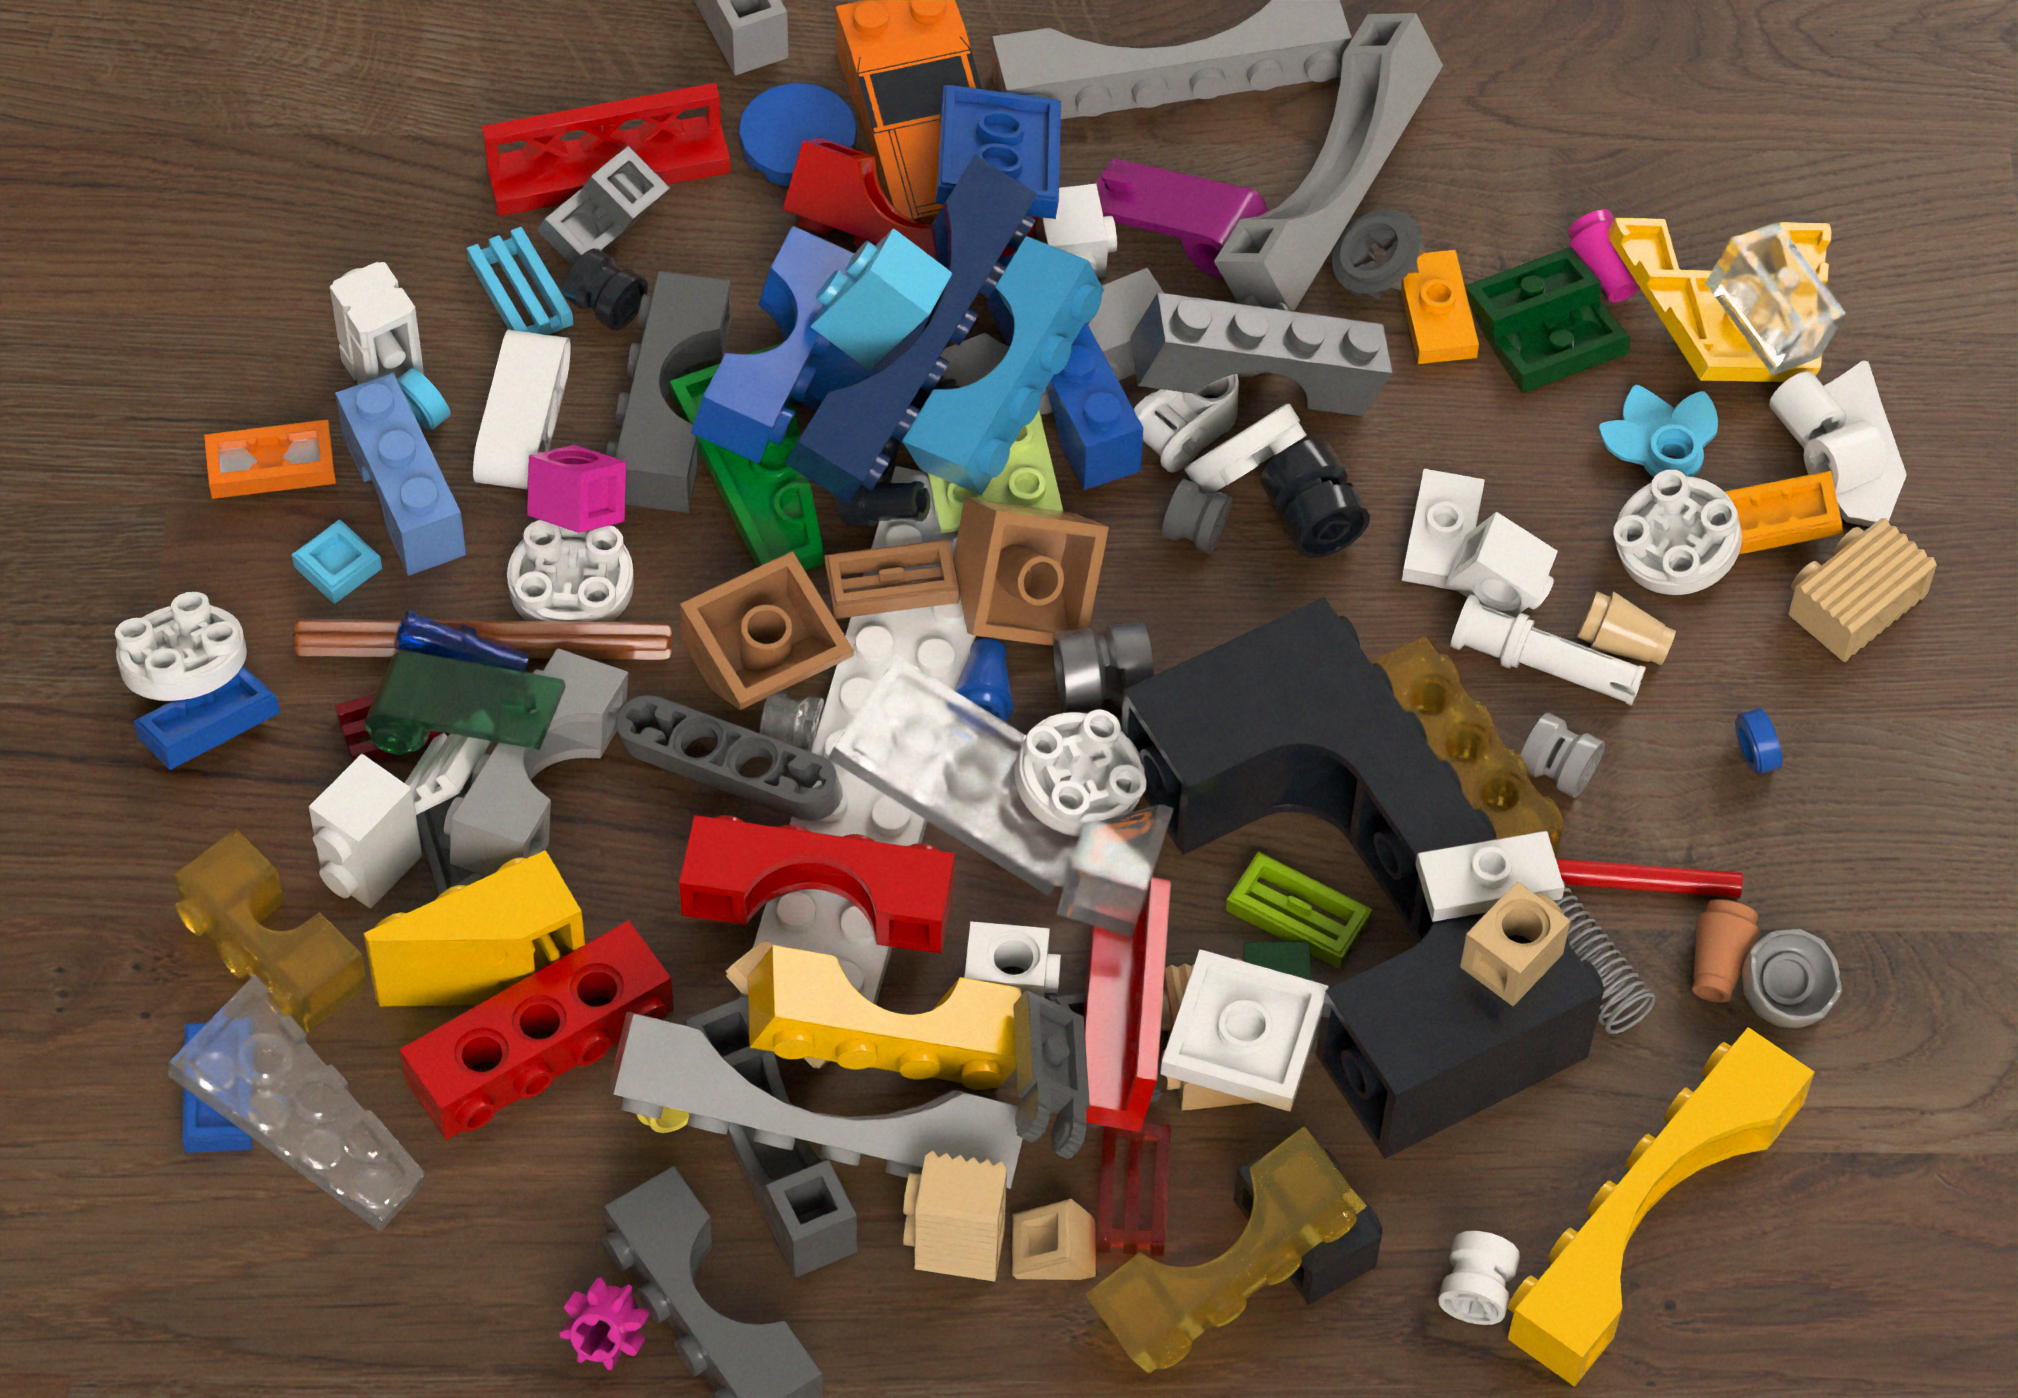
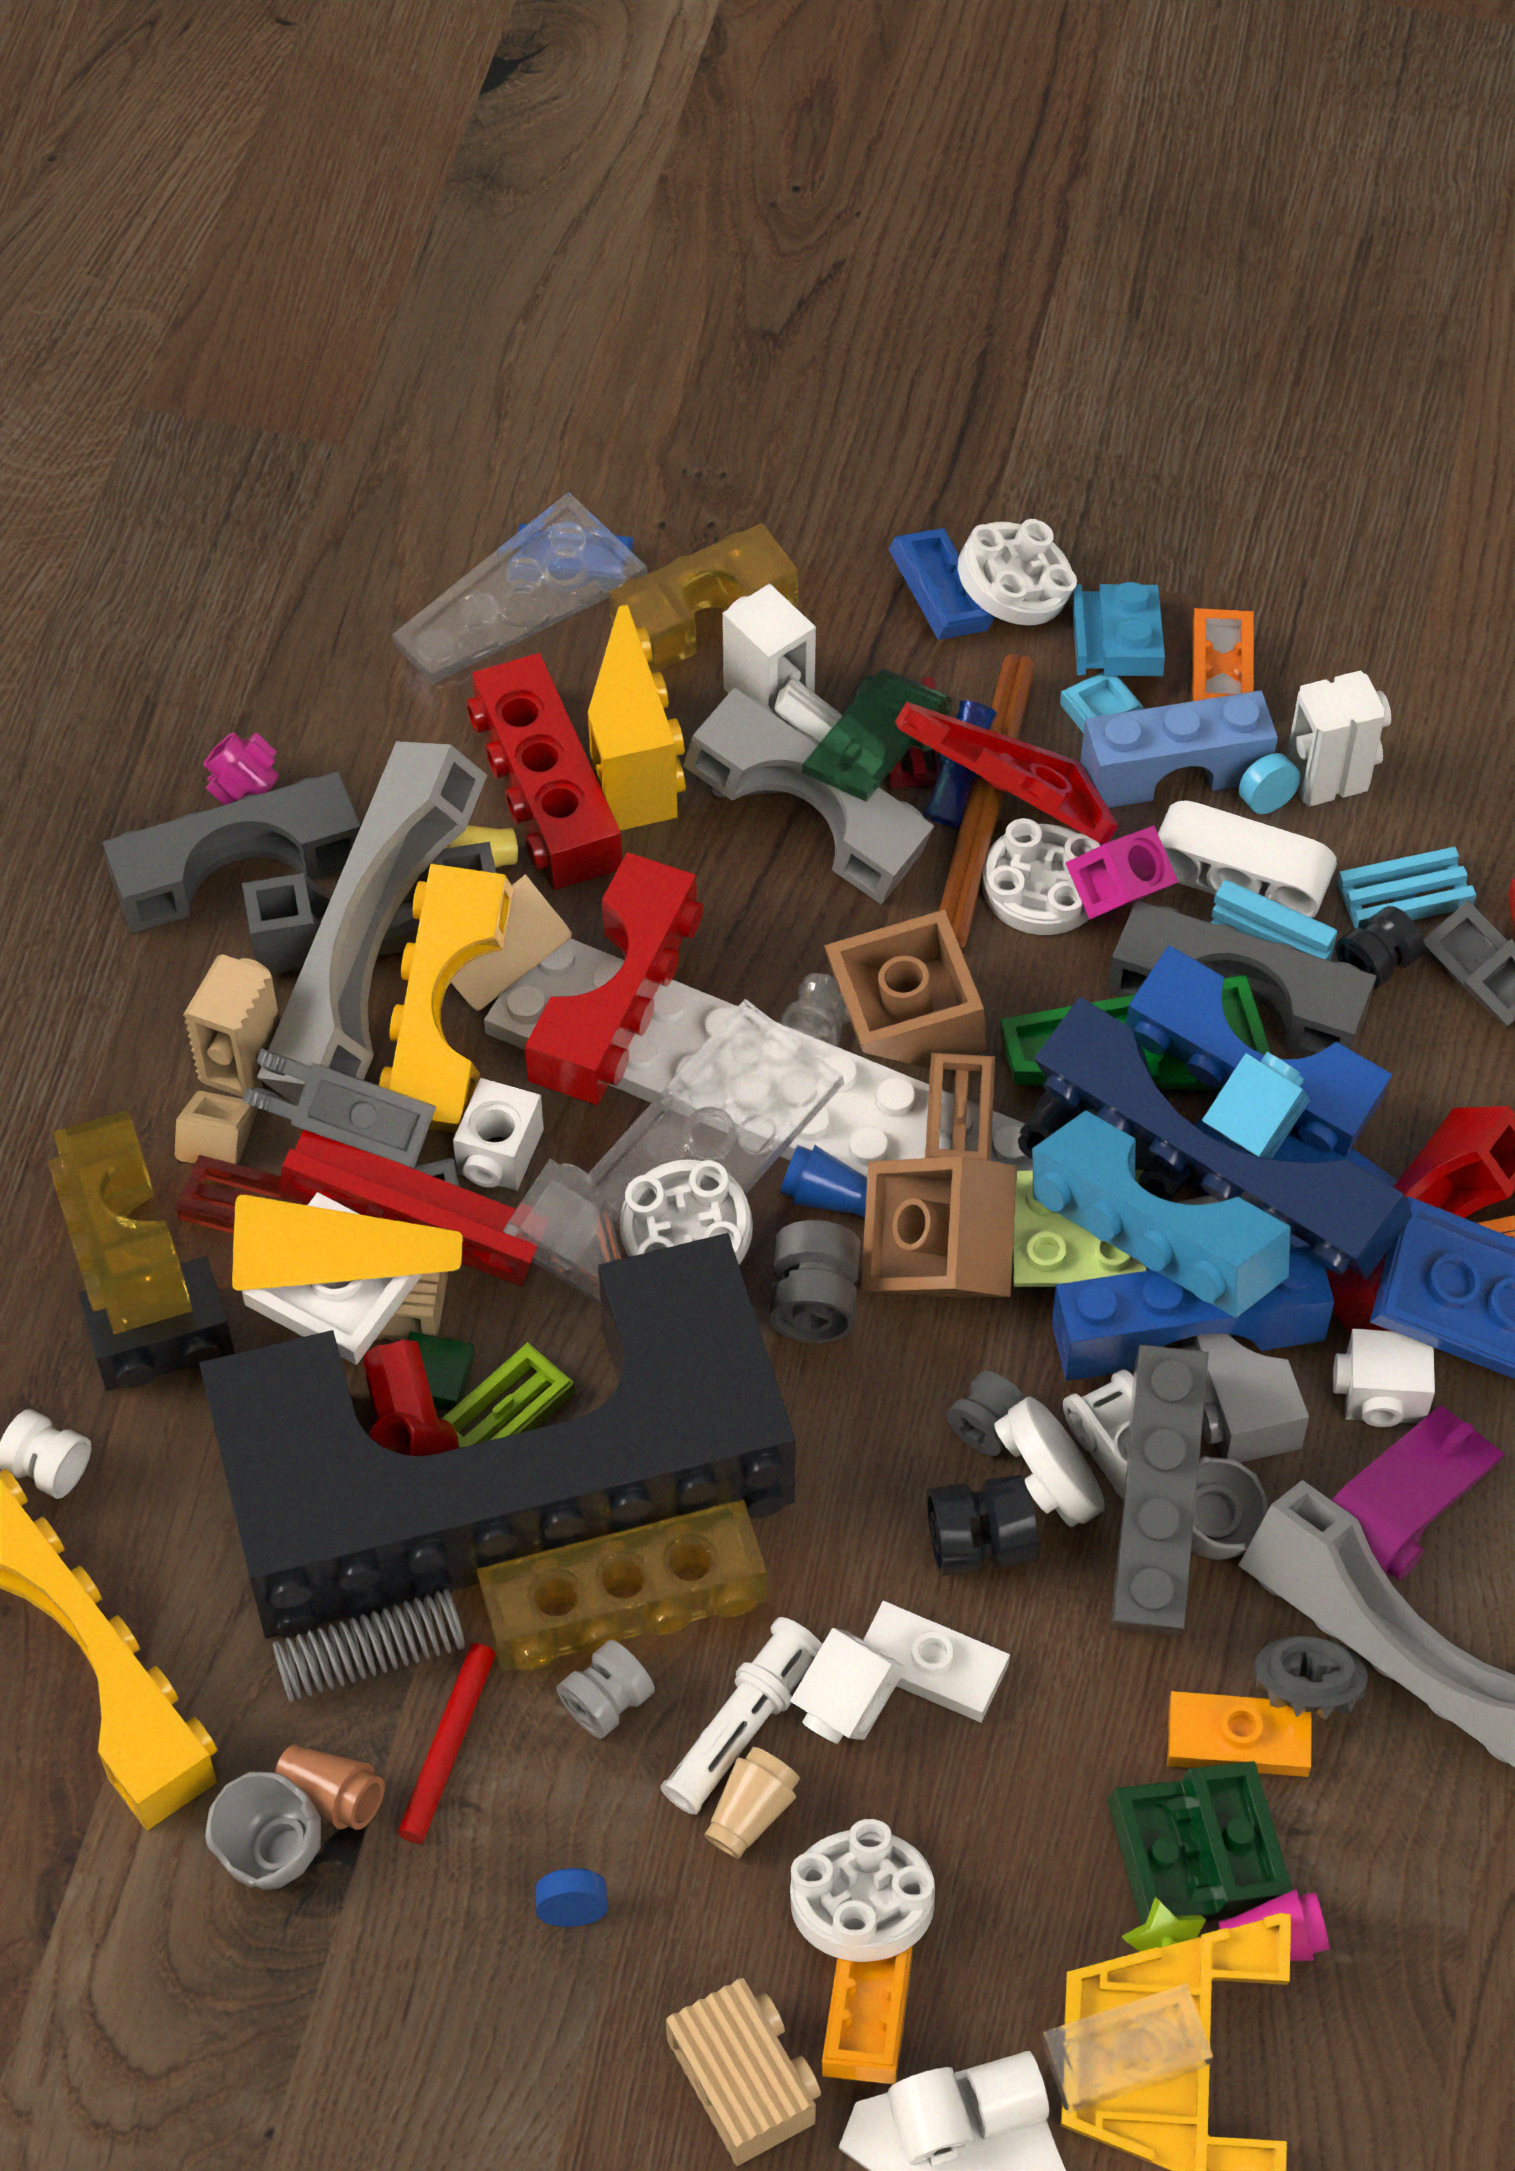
camera: 105 degrees right, 0 degrees up
(244, 551) = (1118, 630): none -> dark azure plate
(476, 575) = (1013, 766): none -> red wing
(602, 374) = (1271, 921): none -> medium azure tile
(733, 750) = (783, 947): dark grey beam -> none
(1223, 1038) = (314, 1245): none -> yellow sticker
(1347, 954) = (404, 1402): none -> red piece
(1477, 875) = (406, 1499): white plate -> none
(1510, 966) = (304, 1463): tan brick -> none
(1640, 325) = (1164, 1929): none -> lime piece
(1657, 430) = (1025, 1926): medium azure plate -> none

